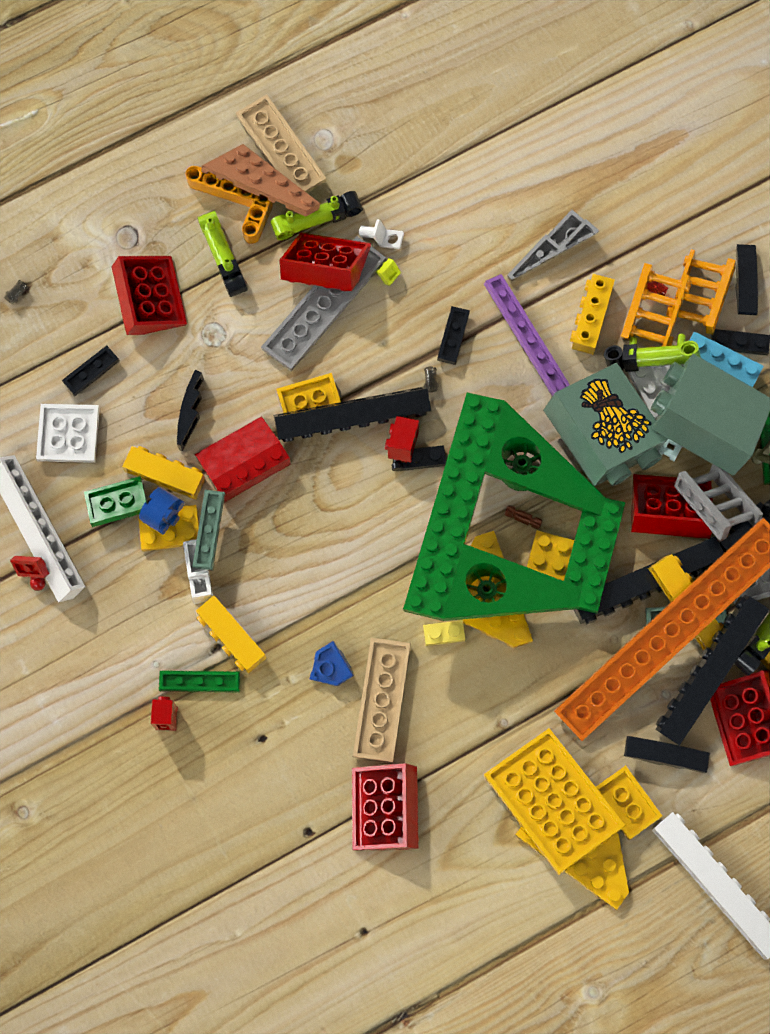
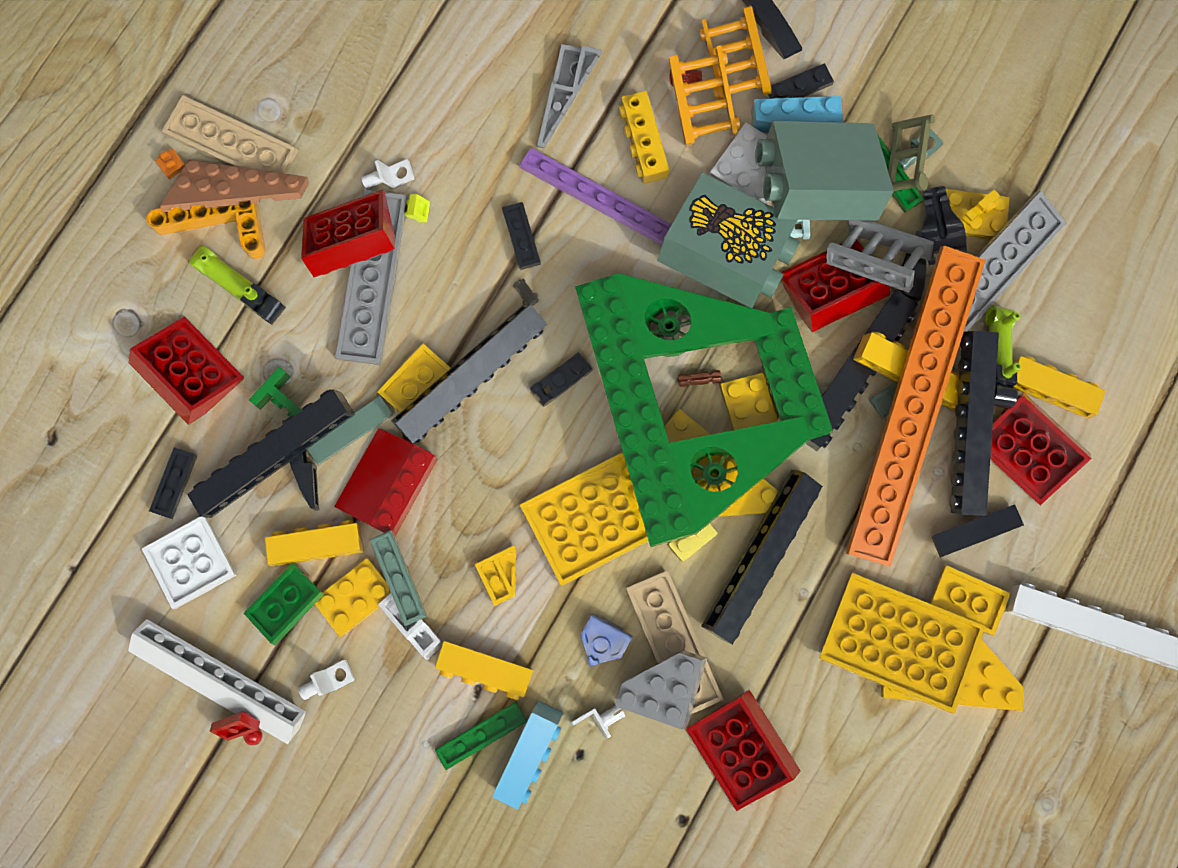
camera: 35 degrees left, 5 degrees up
(13, 295) = (43, 447): clear smoke pin -> none
(112, 575) = (326, 681): none -> white bracket
(161, 510) = (337, 587): blue brick -> none
(164, 714) = (468, 794): red brick -> none
(172, 388) = (271, 453): none -> black brick
(200, 344) = (271, 389): none -> green bracket
(224, 714) = (527, 755): none -> medium azure wedge
(228, 139) = (170, 163): none -> orange tile
(239, 405) = (350, 431): none -> sand green tile
(284, 573) = (499, 575): none -> yellow wing
(294, 723) = (602, 720): none -> white bracket
(333, 210) = (323, 176): lime piece -> none
(353, 725) = (665, 690): none -> light grey brick
(370, 571) = (587, 520): none -> yellow plate
(403, 439) = (536, 369): red brick -> none
(487, 674) = (762, 556): none -> black brick
(633, 357) = (713, 157): lime piece -> none

